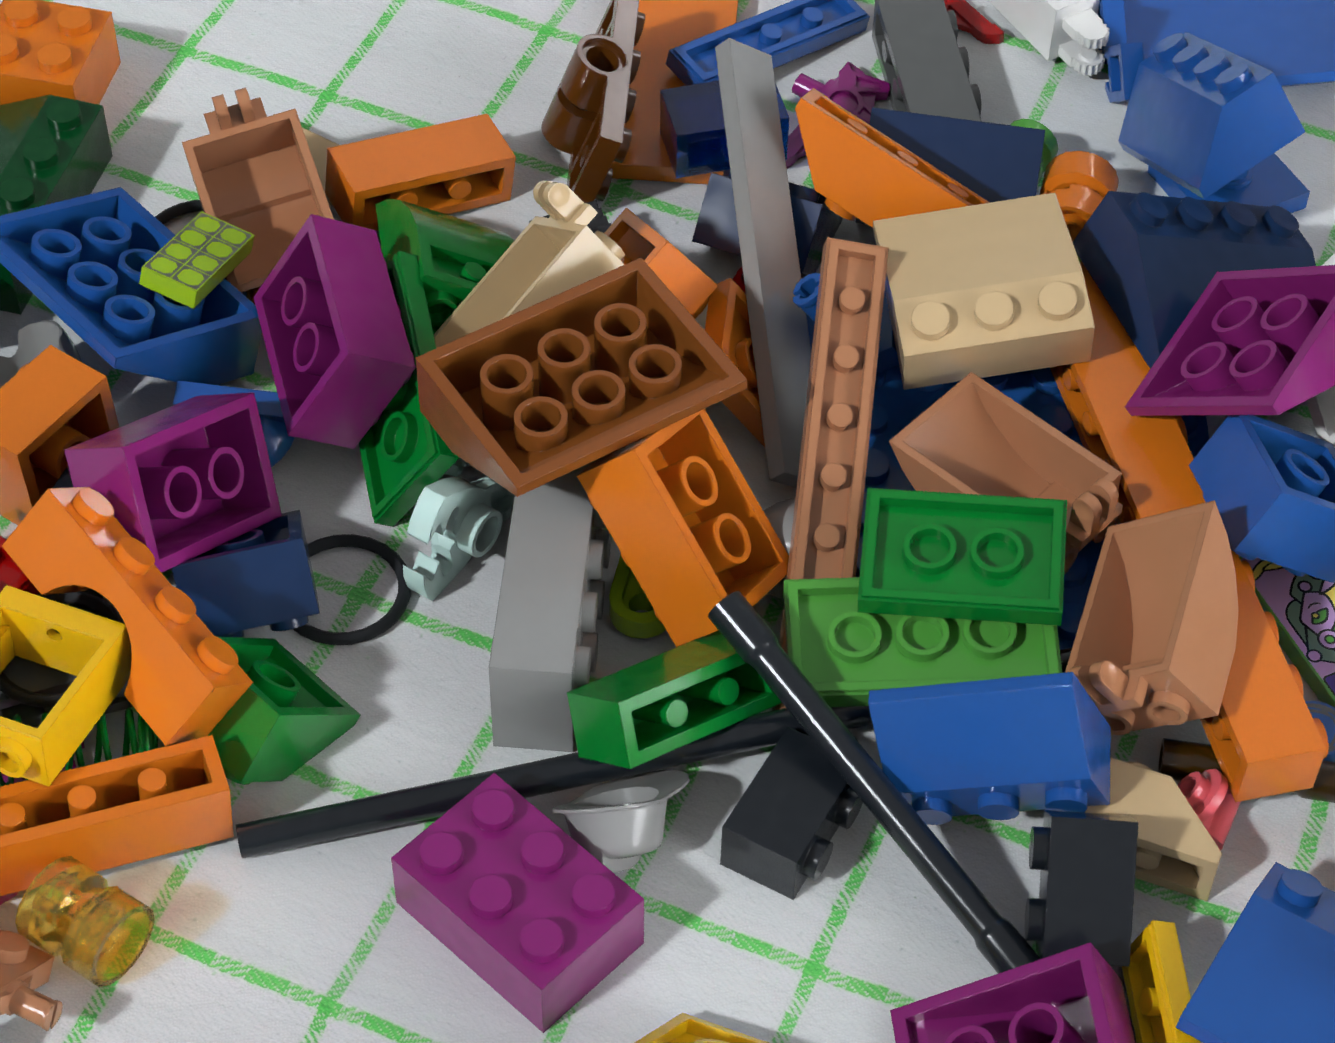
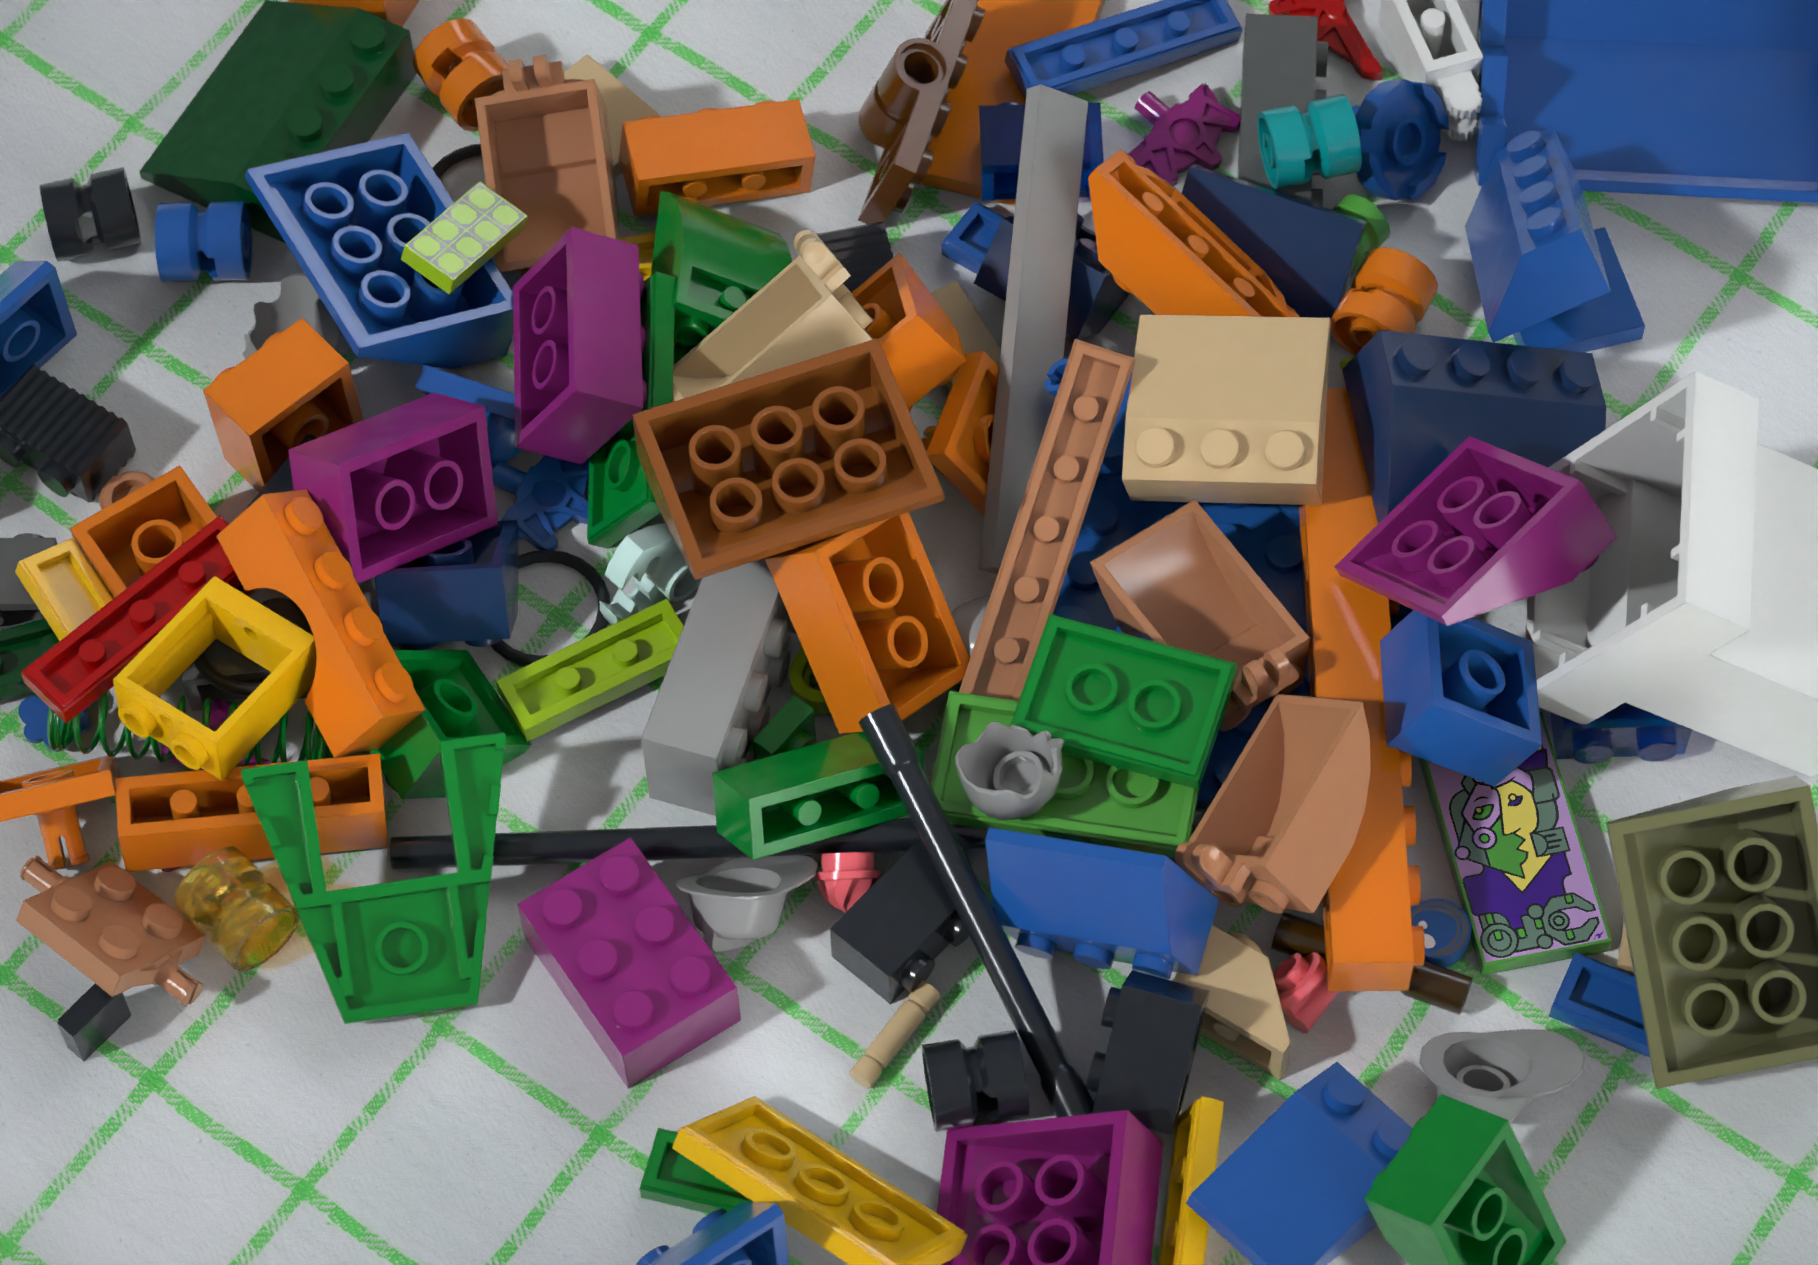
camera: 15 degrees right, 10 degrees up
(150, 137) = (458, 67): none -> orange wheel
(268, 922) = (402, 941): none -> green wing
(324, 487) = (545, 498): none -> blue piece
(410, 633) = (592, 671): none -> lime plate
(623, 649) = (787, 730): none -> green plate
(678, 212) = (971, 237): none -> blue tile
(719, 781) = (846, 877): none -> coral plate
(808, 927) = (894, 1034): none -> tan wheel
(874, 637) = (1010, 770): none -> light grey hair
(919, 949) = (975, 1080): none -> black wheel
(973, 73) = (1309, 141): none -> teal wheel
(1038, 71) = (1400, 139): none -> blue tile

